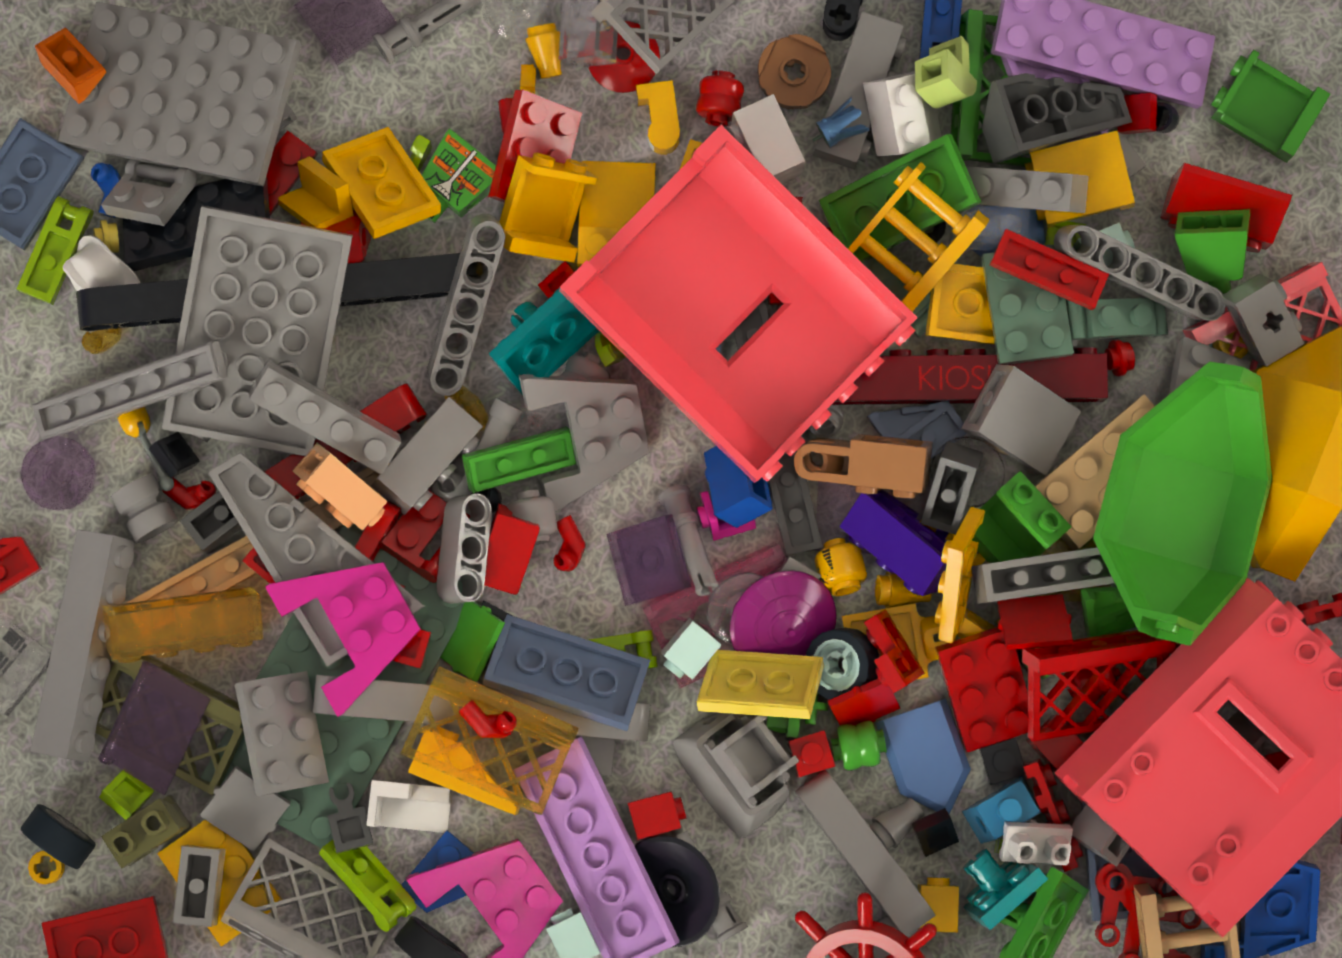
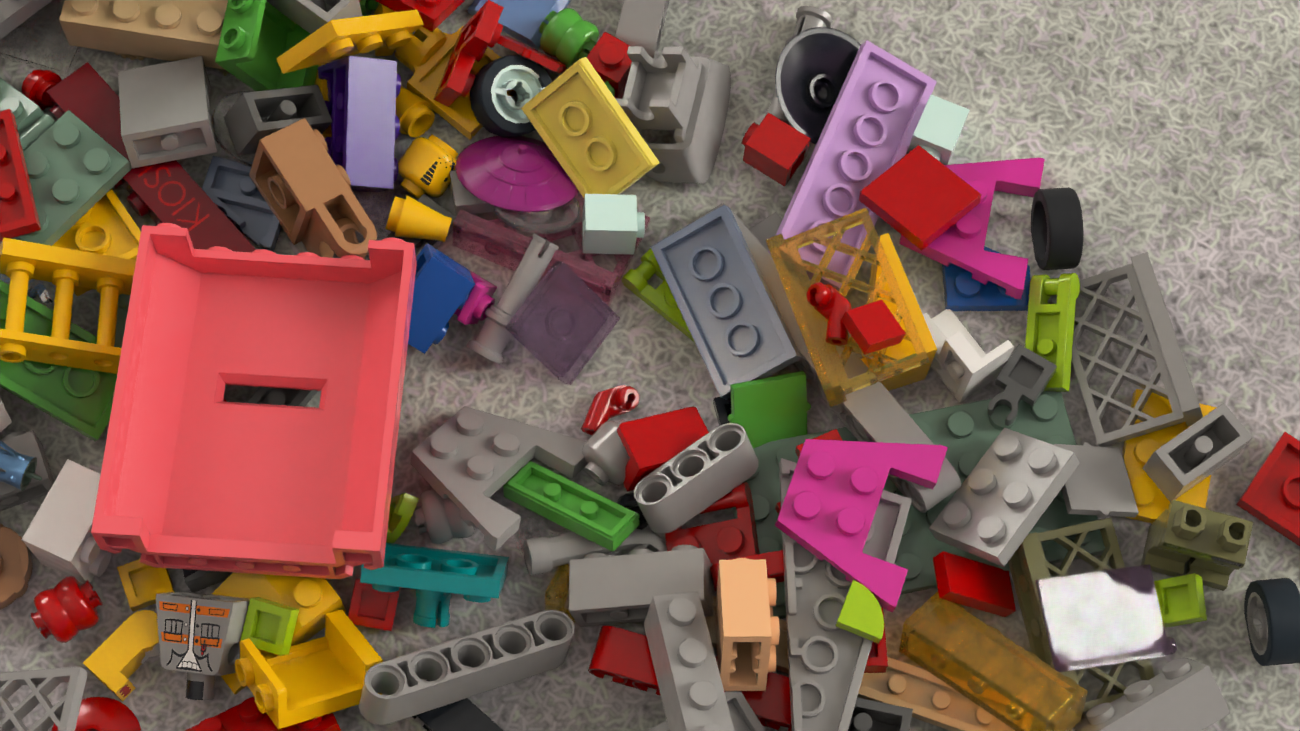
camera: 130 degrees left, 15 degrees down
(250, 662) = (974, 584): none -> red tile
(280, 562) = (861, 613): none -> lime tile
(450, 733) = (873, 327): none -> red tile
(531, 874) = (920, 197): none -> red tile
(596, 206) = (270, 625): none -> lime tile
(629, 165) = (200, 637): none -> light grey torso
(800, 522) = (415, 220): none -> yellow cone

